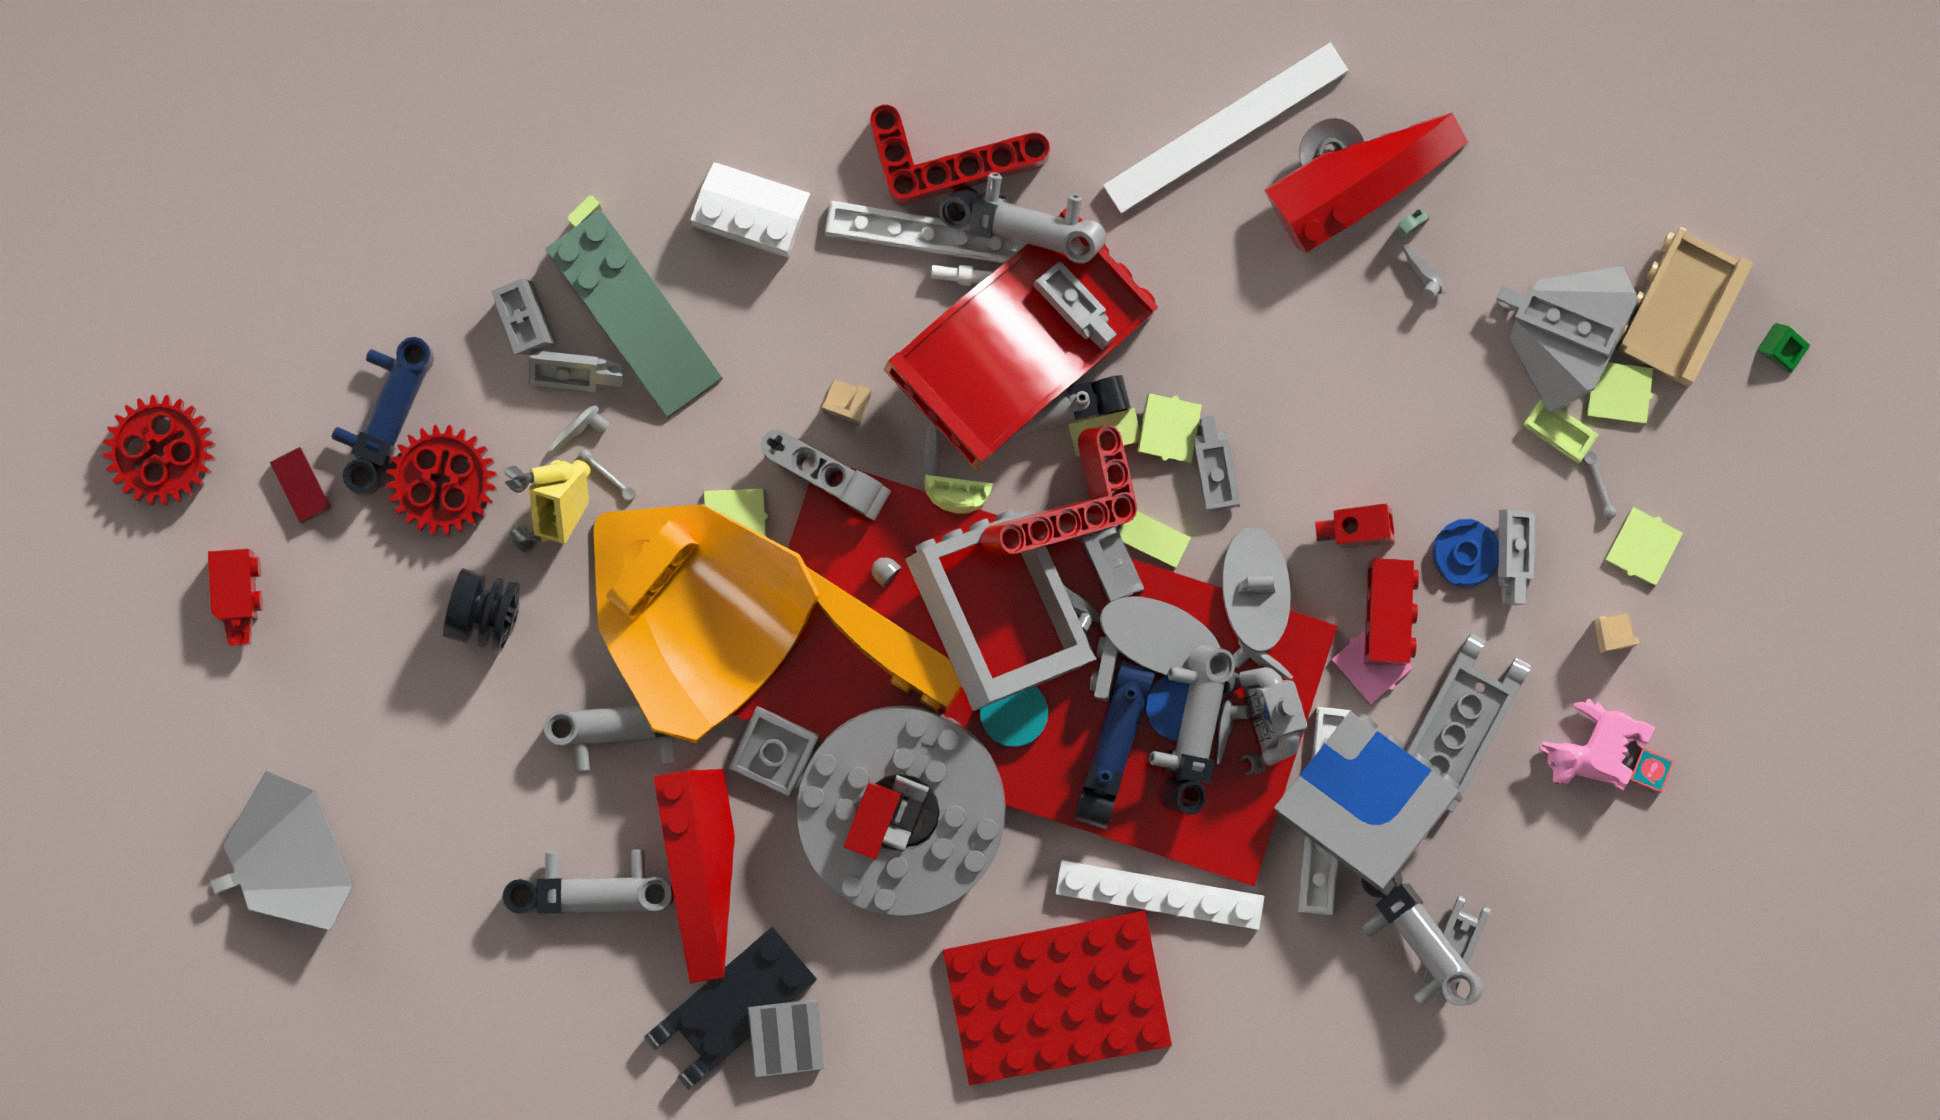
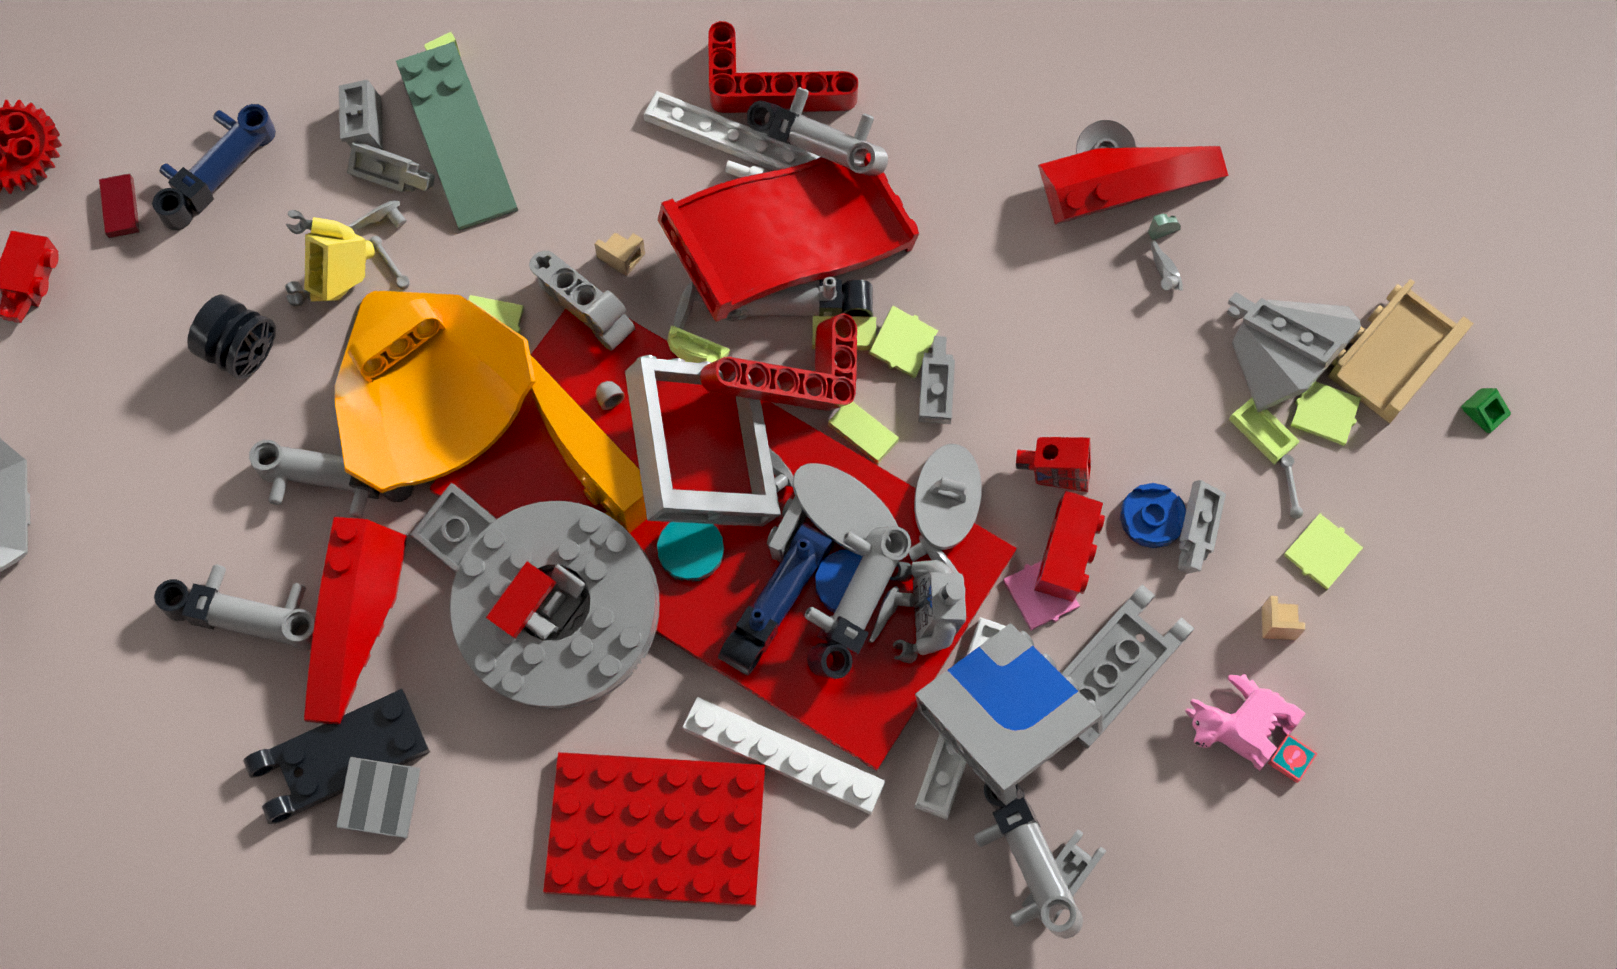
camera: 15 degrees right, 15 degrees down
(472, 483) = (240, 228): red gear -> none
(750, 209) = (582, 83): white slope -> none
(1075, 304) = (846, 212): light grey hinge -> none
(1112, 564) = (819, 435): light grey hinge -> none
(1225, 128) = (1015, 116): white tile -> none

